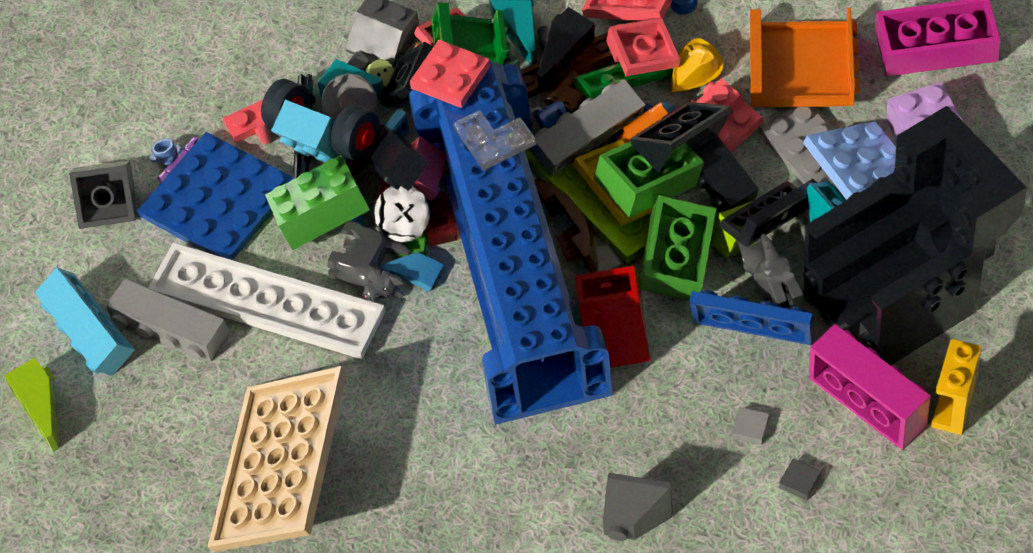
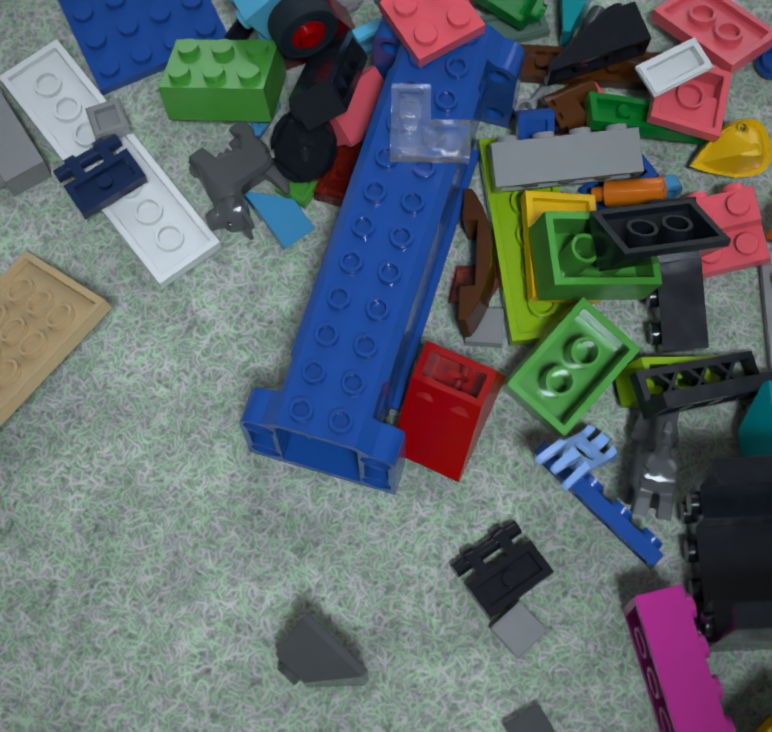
camera: 25 degrees right, 15 degrees up
(250, 272) = (108, 119): none -> light grey tile
(277, 311) = (105, 182): none -> dark blue plate
(622, 32) = (673, 67): none -> white tile
(720, 288) = (577, 462): none -> light blue piece
(723, 399) = (509, 578): none -> black plate

